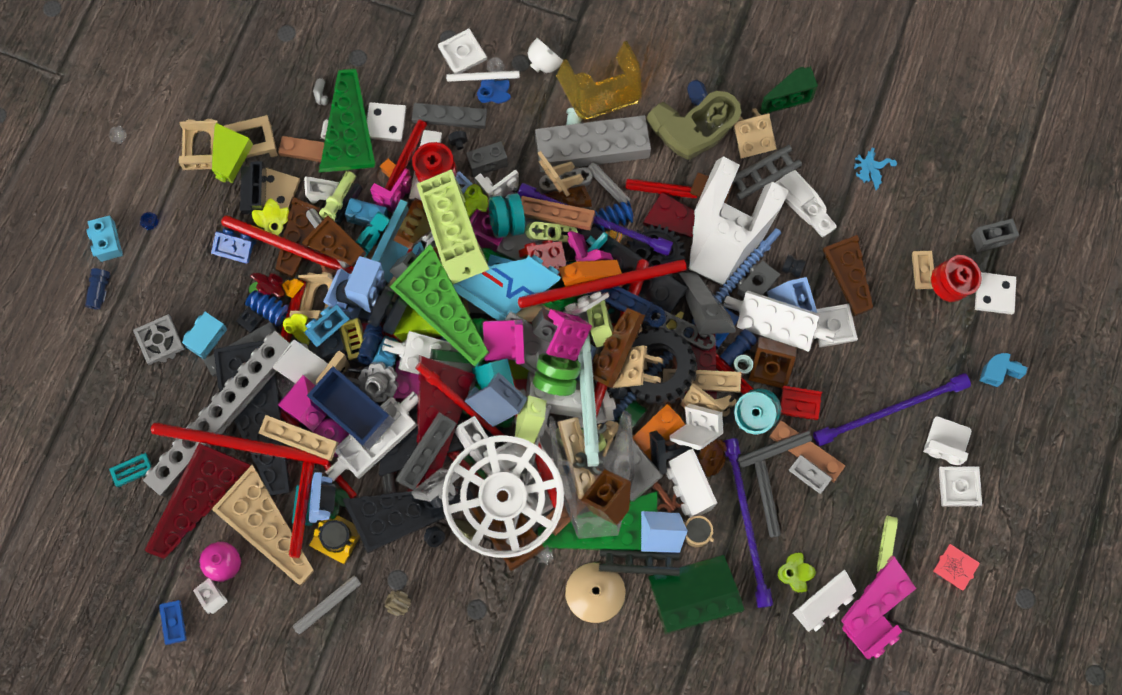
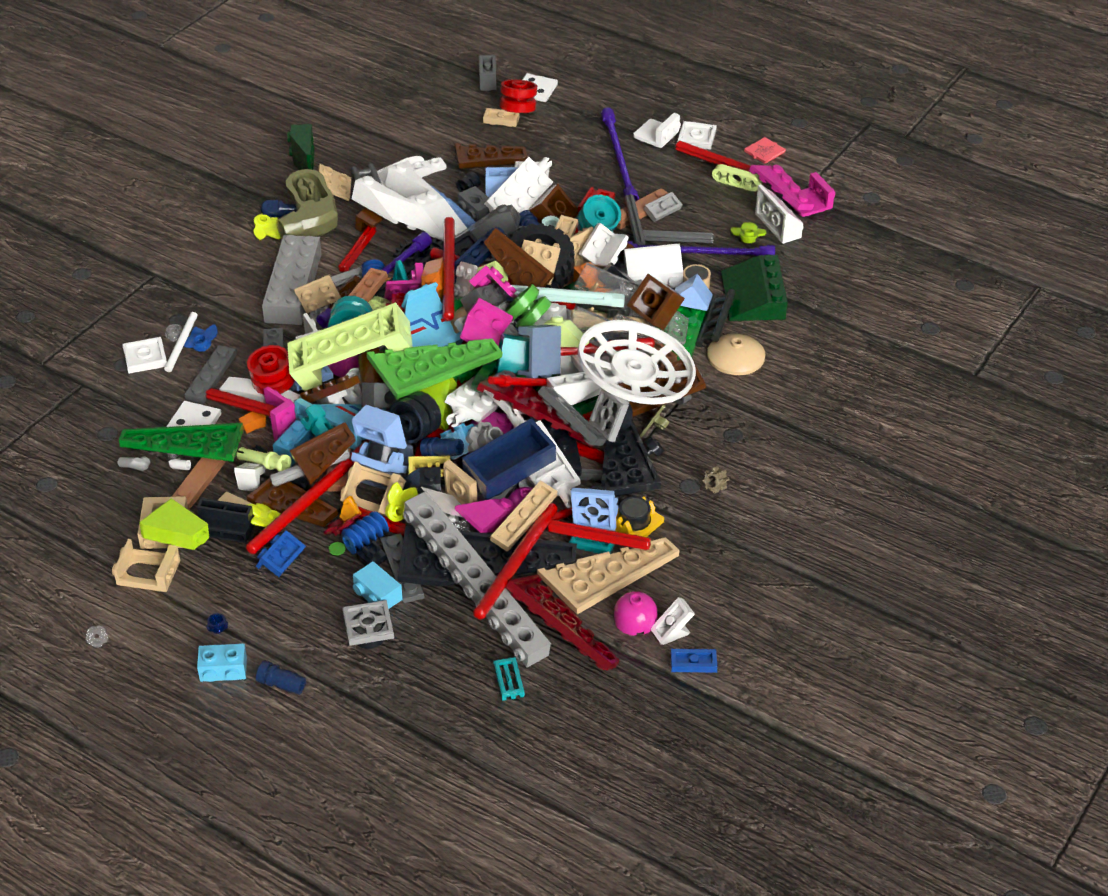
camera: 75 degrees left, 30 degrees down
(326, 605) = (703, 538): light grey axle -> none
(330, 321) = (413, 465): dark azure brick -> none
(458, 139) = (241, 367): black tile -> none
(543, 57) = (184, 292): white cylinder -> none
(572, 117) = (257, 287): light aqua piece -> none
(607, 95) = (233, 255): clear yellow windscreen -> none
(671, 214) = (386, 245): dark red wing -> none
(674, 99) = (266, 226): none -> neon yellow plate
(869, 165) = (394, 130): dark azure piece -> none
(920, 513) = (710, 156): none -> red axle
(999, 366) = (605, 94): dark azure brick -> none

